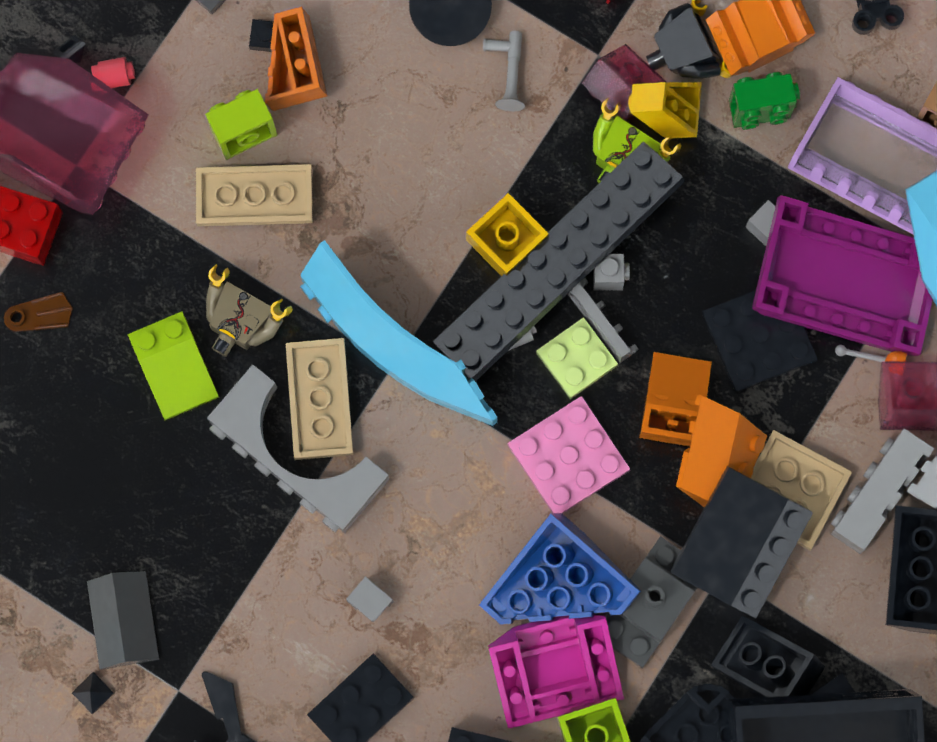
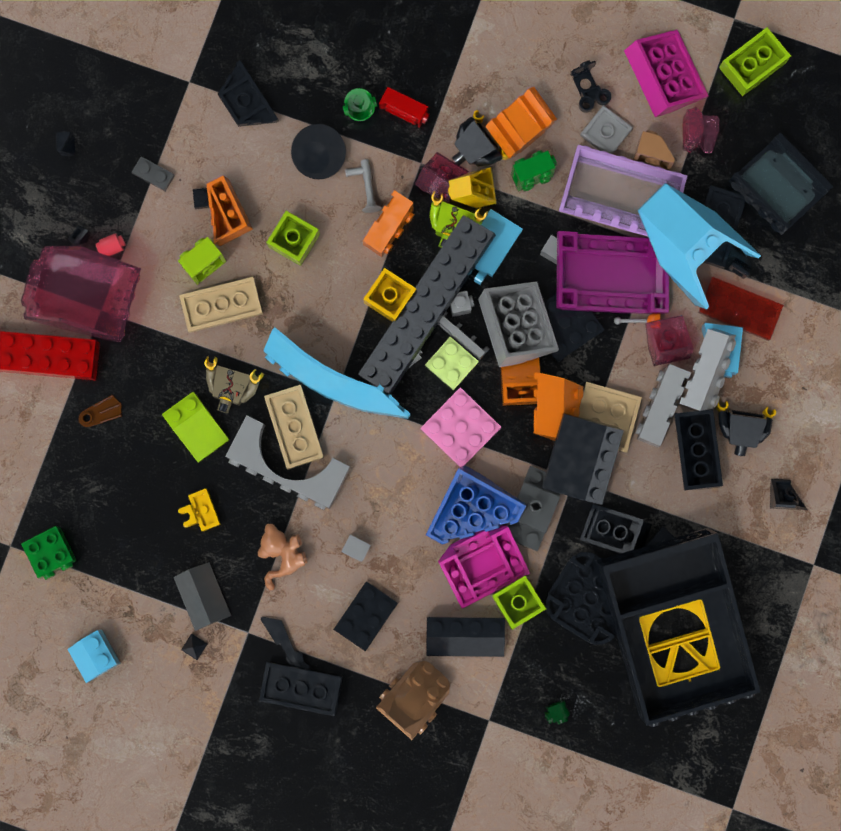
camera: 15 degrees left, 5 degrees up
(150, 492) = (200, 511): none -> yellow plate
(248, 567) = (274, 545): none -> nougat animal
(383, 121) = (293, 238): none -> lime brick
(530, 132) = (389, 224): none -> orange wedge
(680, 208) = (506, 235): none -> medium azure tile
(688, 319) = (517, 323): none -> light grey slope
(885, 67) = (606, 131): none -> light grey tile

